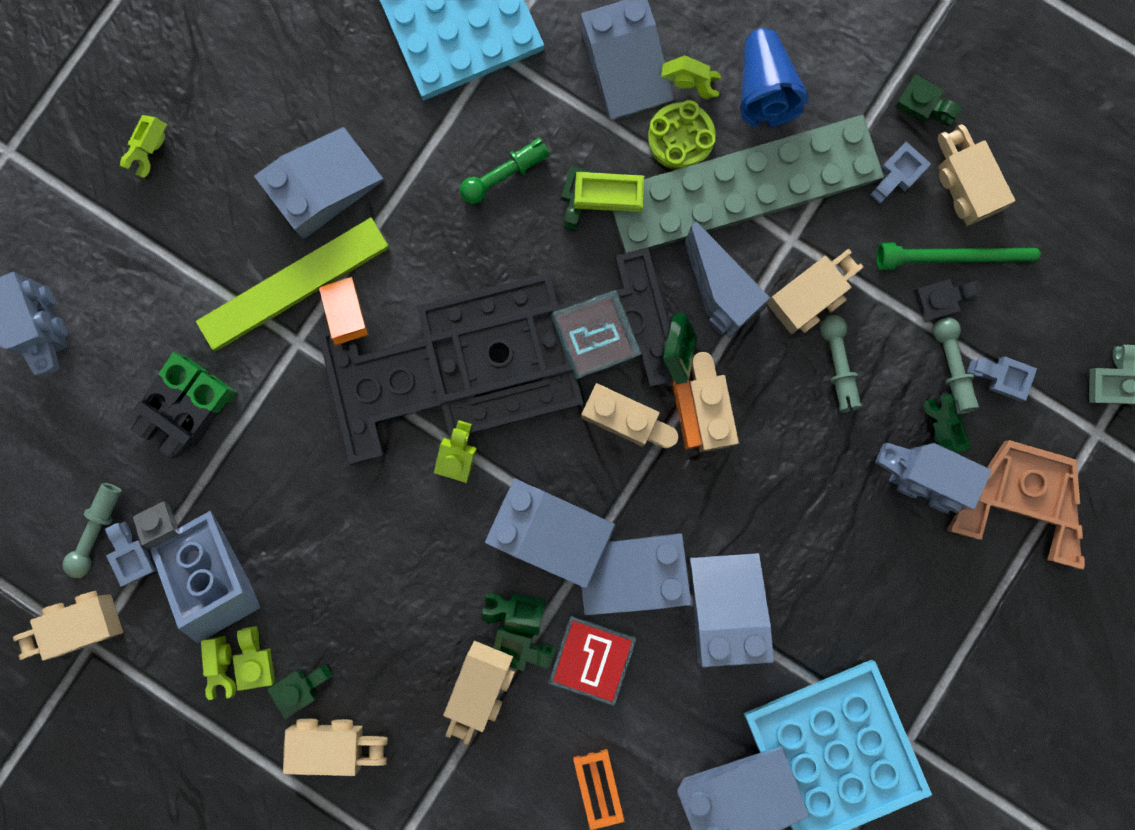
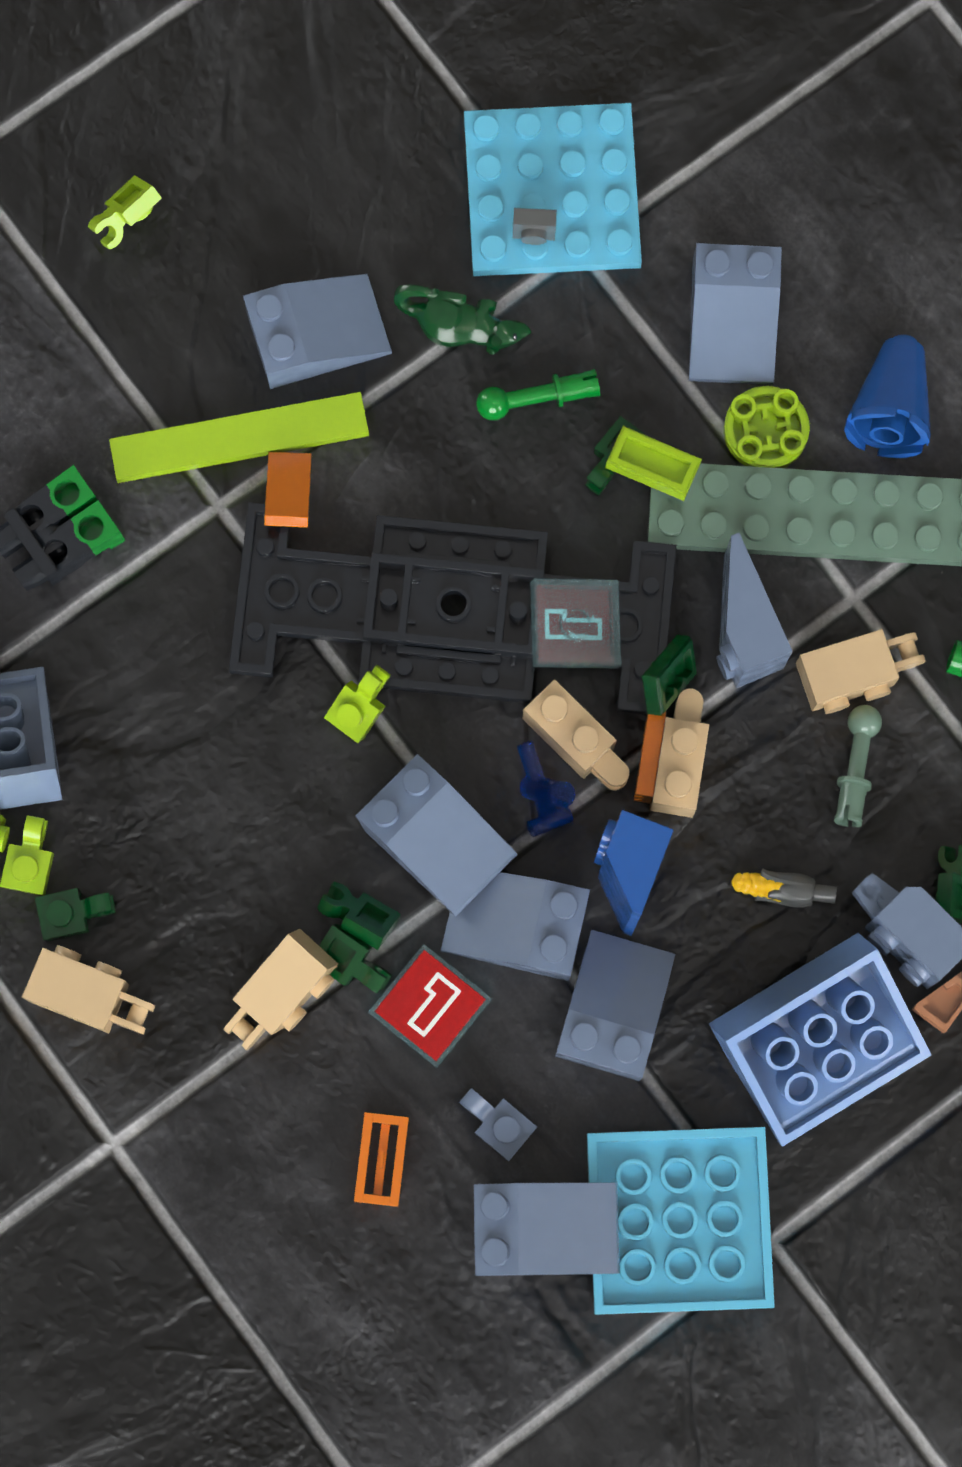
camera: 15 degrees right, 5 degrees down
(422, 139) = (453, 322): none -> dark green animal
(454, 43) = (534, 225): none -> dark grey plate
(628, 475) = (545, 793): none -> clear blue piece
(678, 731) = (501, 1126): none -> sand blue plate
(689, 73) = (800, 357): lime plate -> none
(712, 510) = (629, 864): none -> blue slope
(821, 475) = (784, 888): none -> dark grey piece
(890, 577) = (821, 1038): none -> medium blue slope

